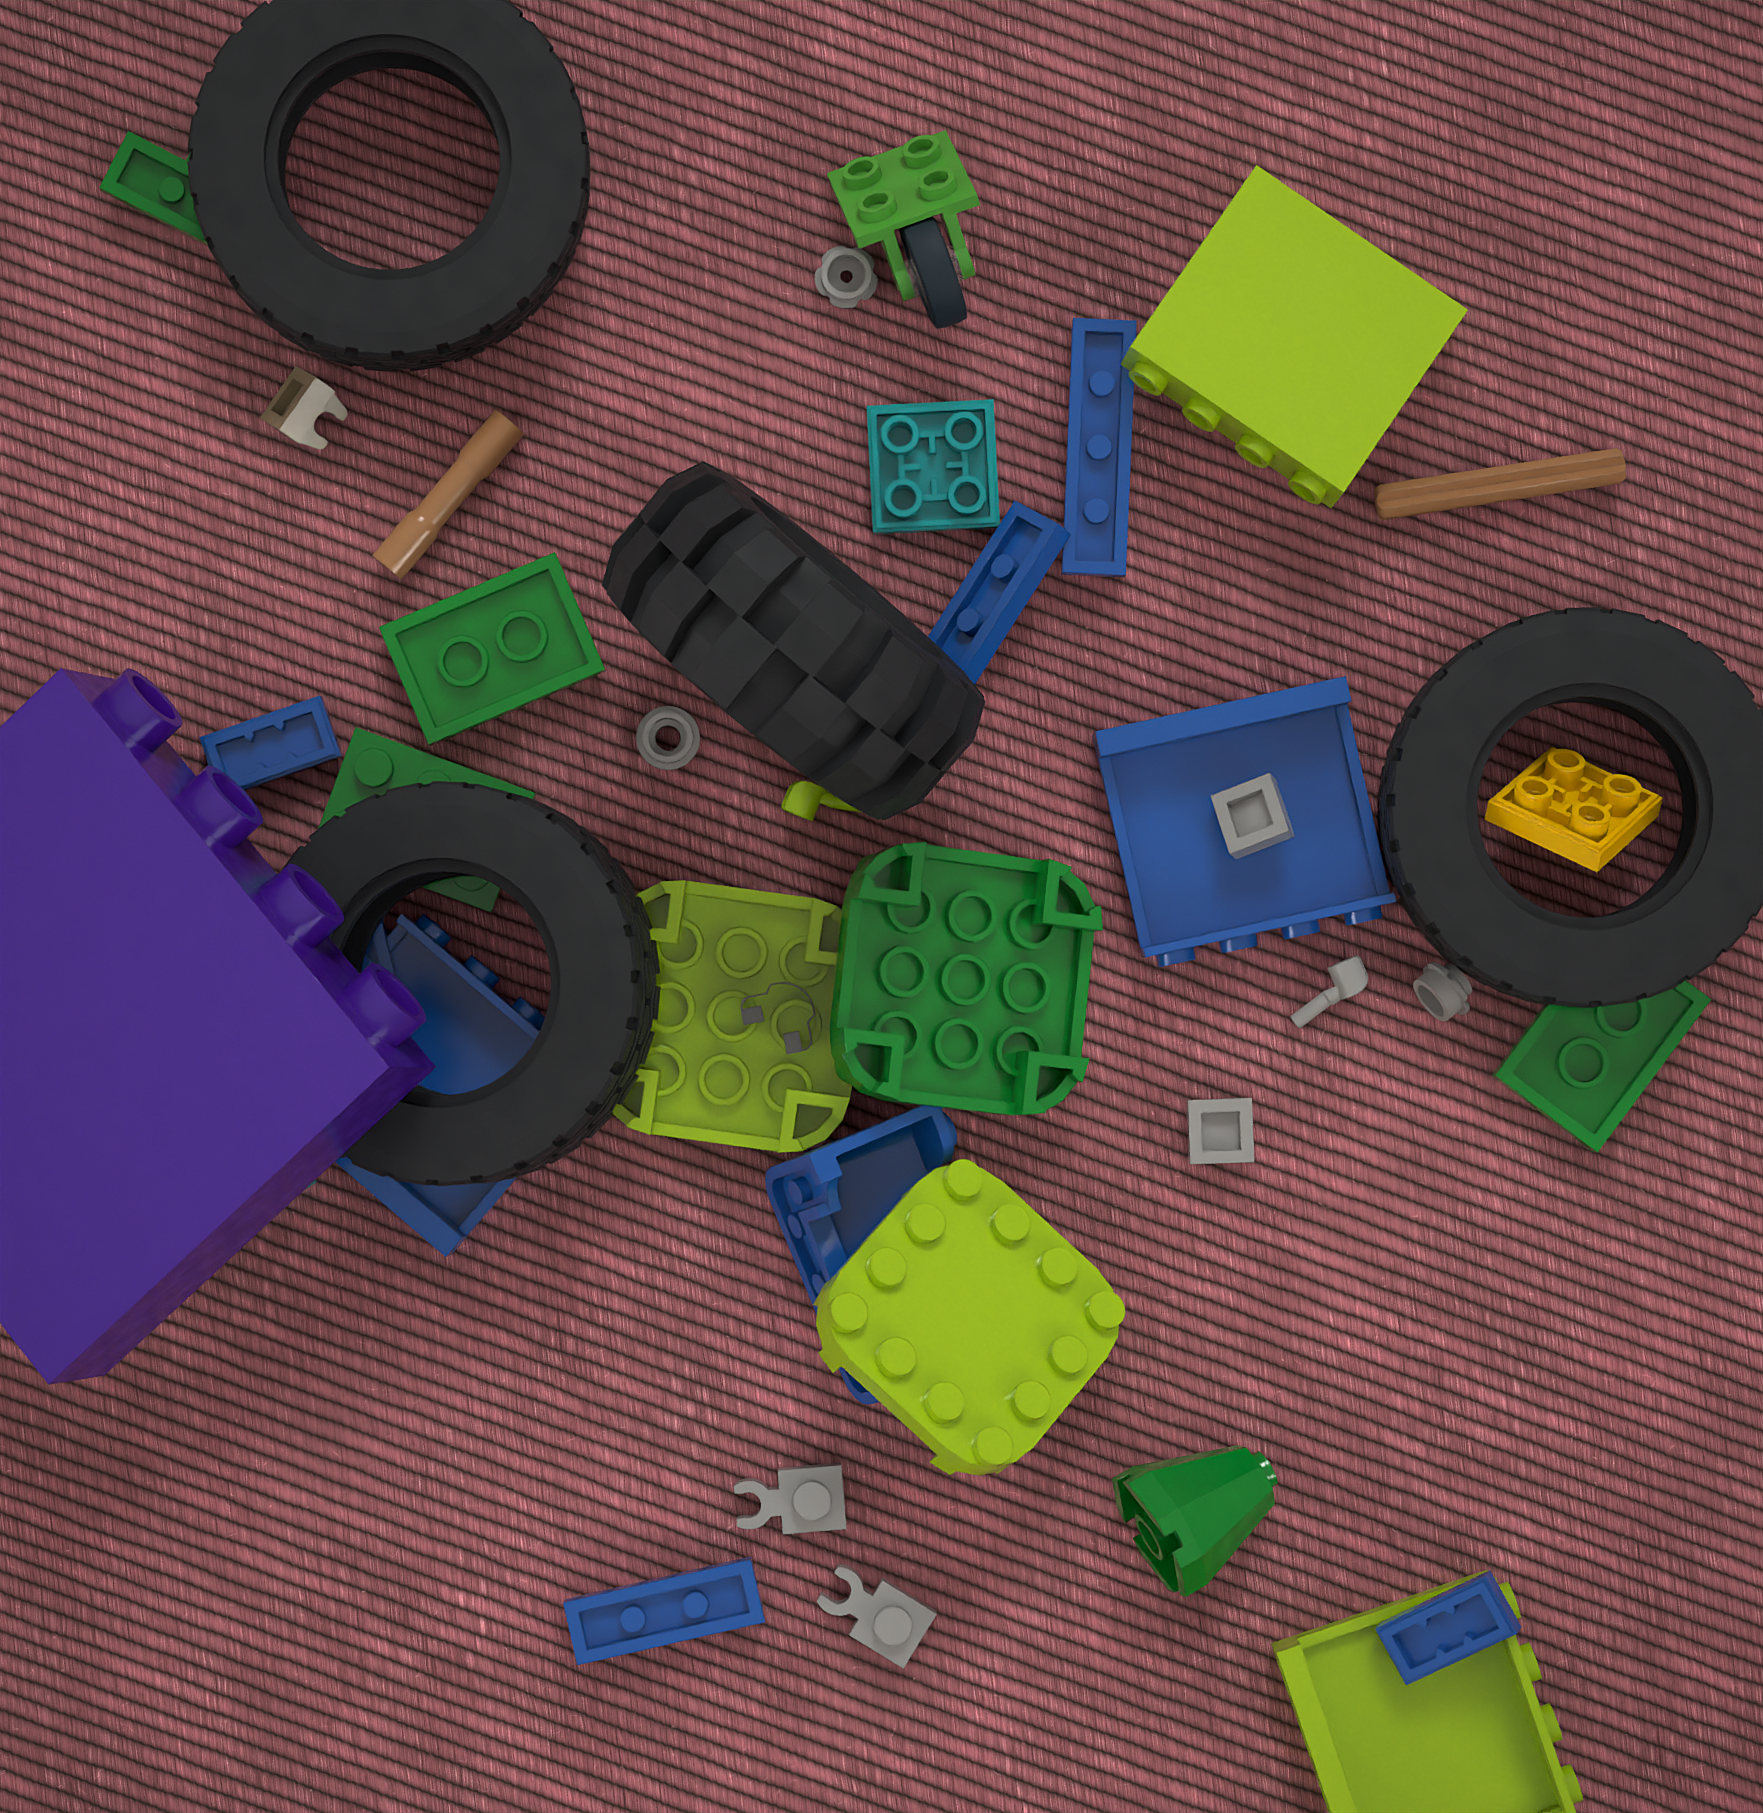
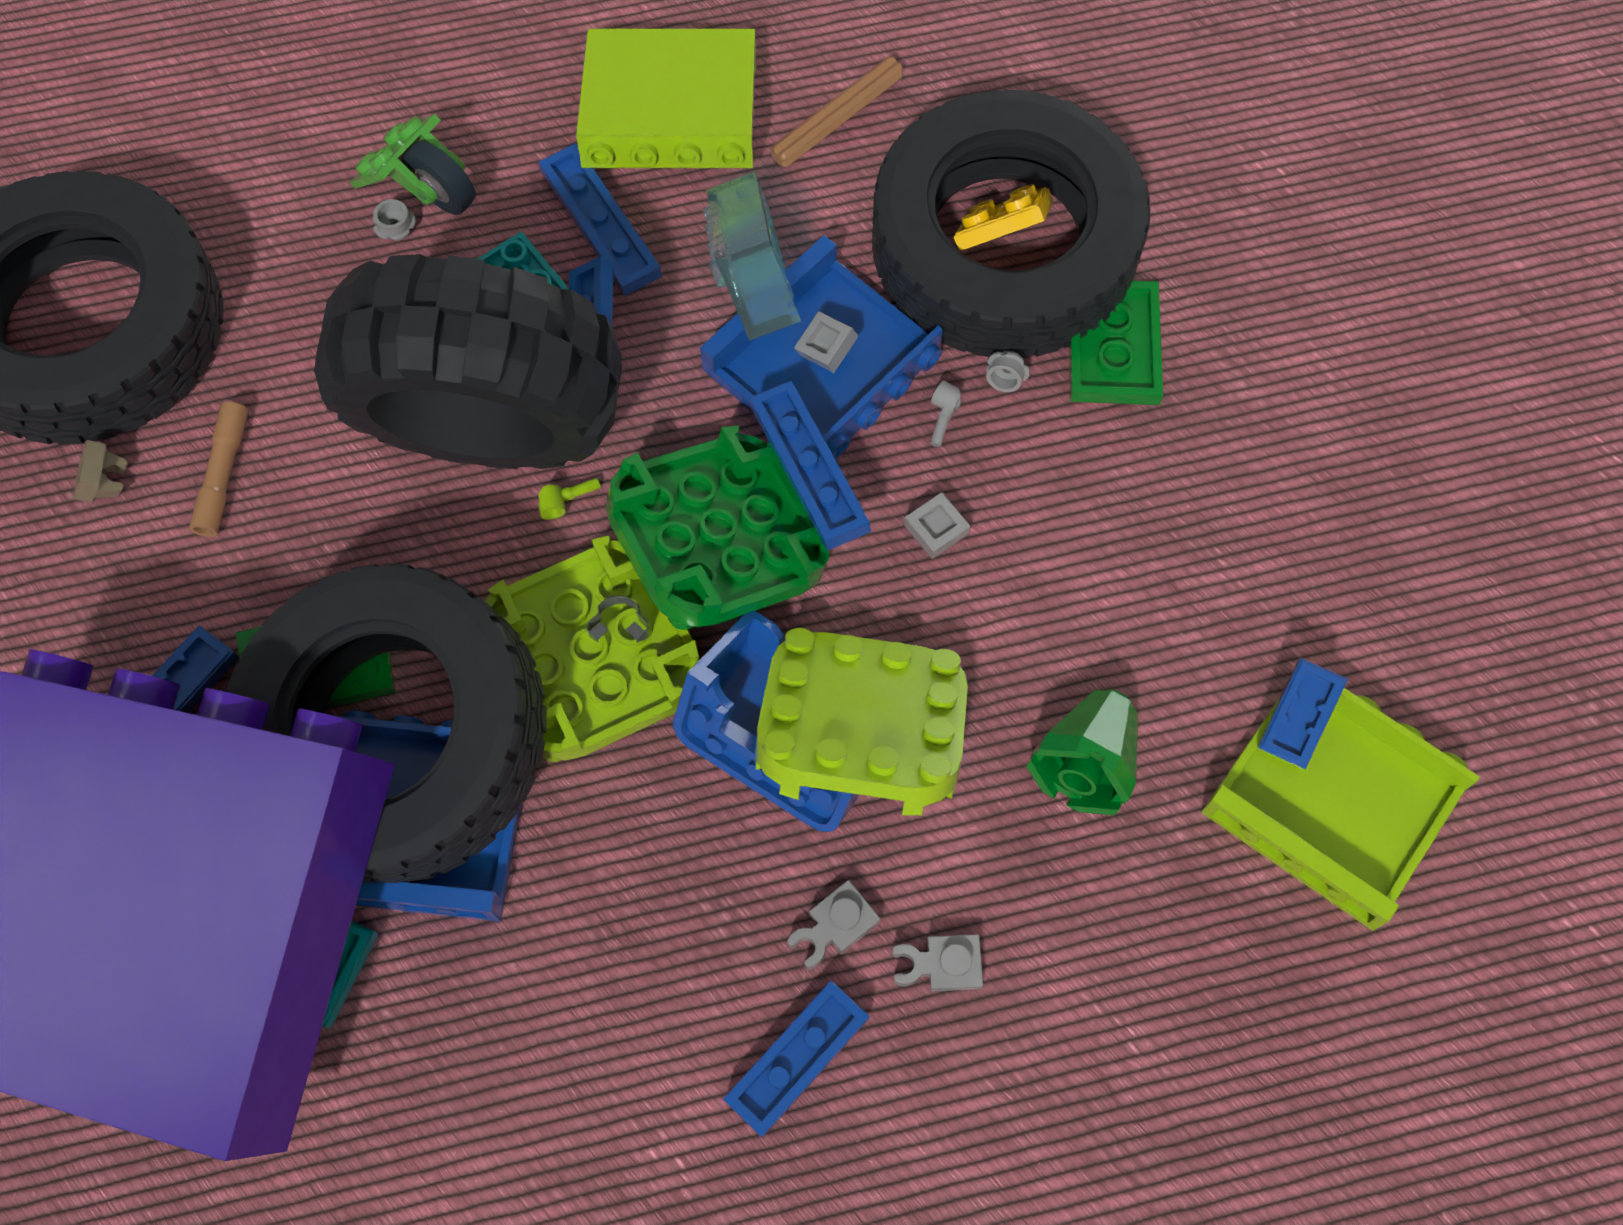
camera: 30 degrees left, 20 degrees down
(492, 649) = (298, 532): green plate -> none
(653, 723) = (436, 510): light grey plate -> none
(1115, 978) = (810, 465): none -> blue plate
(1232, 649) = (749, 256): none -> clear light blue wedge

